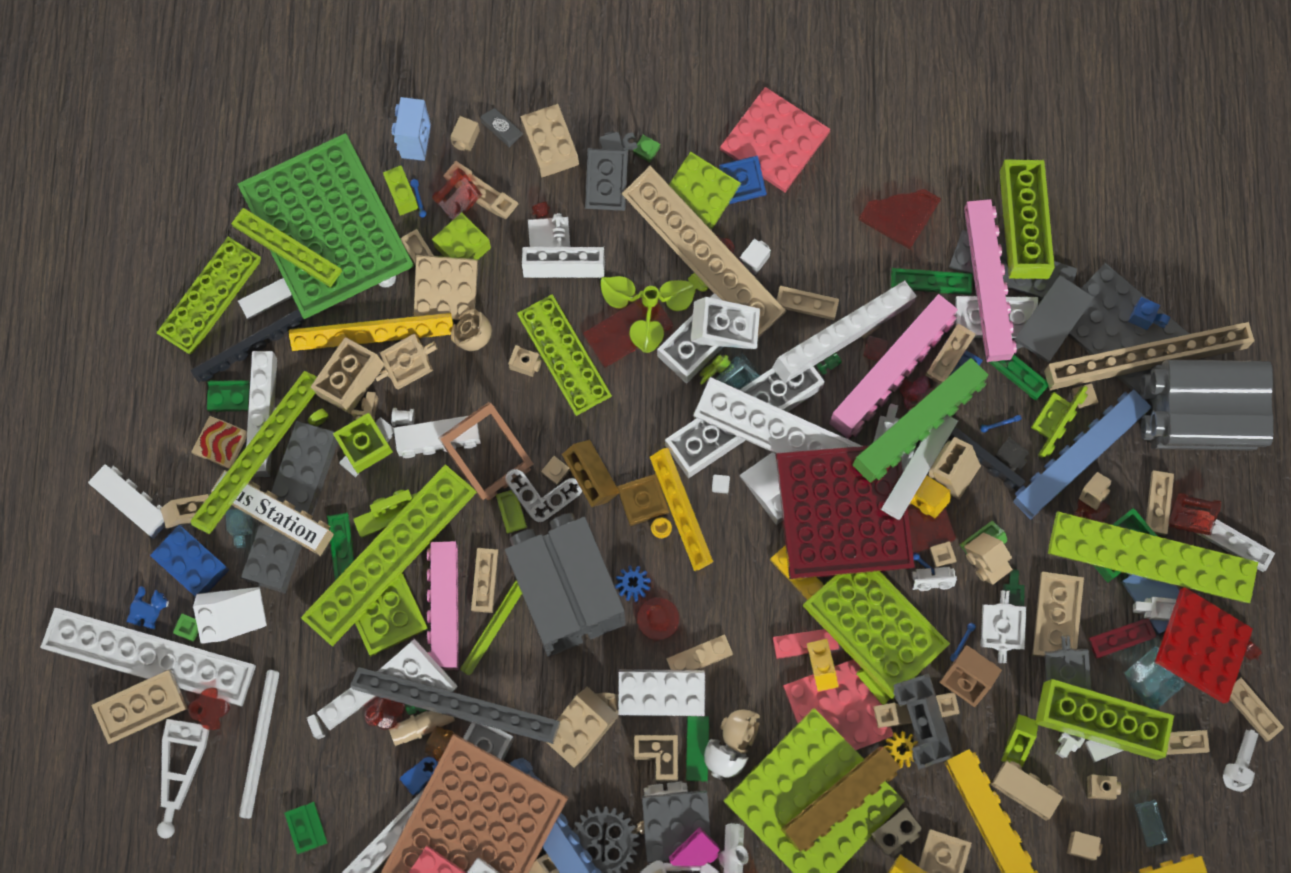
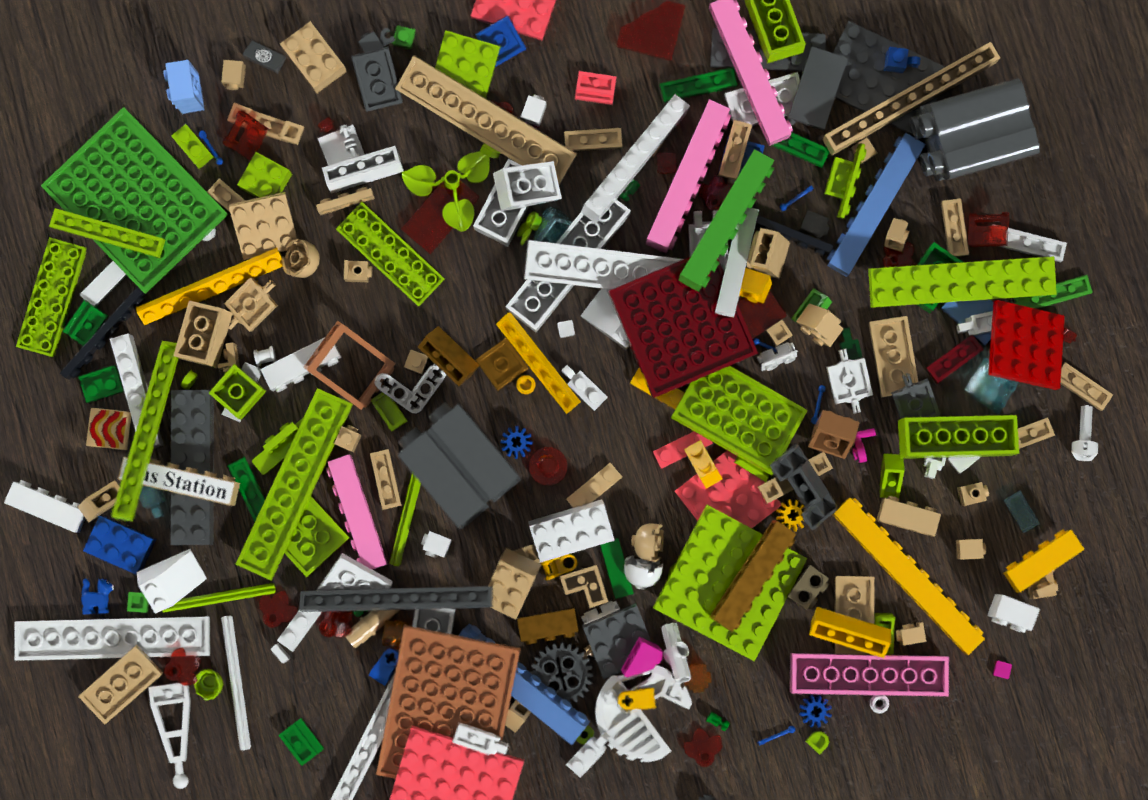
camera: 20 degrees left, 10 degrees up
(230, 735) = (209, 684): none -> lime hair
(233, 329) = (85, 323): none -> green plate
(275, 649) = (223, 597): none -> lime axle
(330, 678) = (279, 607): none -> clear red plate
(459, 525) = (348, 438): none -> tan brick
(515, 663) = (435, 544): none -> white brick
(535, 288) = (345, 200): none -> tan plate
(605, 786) = (547, 626): none -> pearl gold brick
(635, 726) = (557, 566): none -> yellow piece
(721, 550) = (584, 388): none -> white plate
(825, 252) = (595, 87): none -> coral plate
(993, 704) = (859, 450): none -> dark pink plate
(1260, 604) = (1065, 291): none -> bright green tile

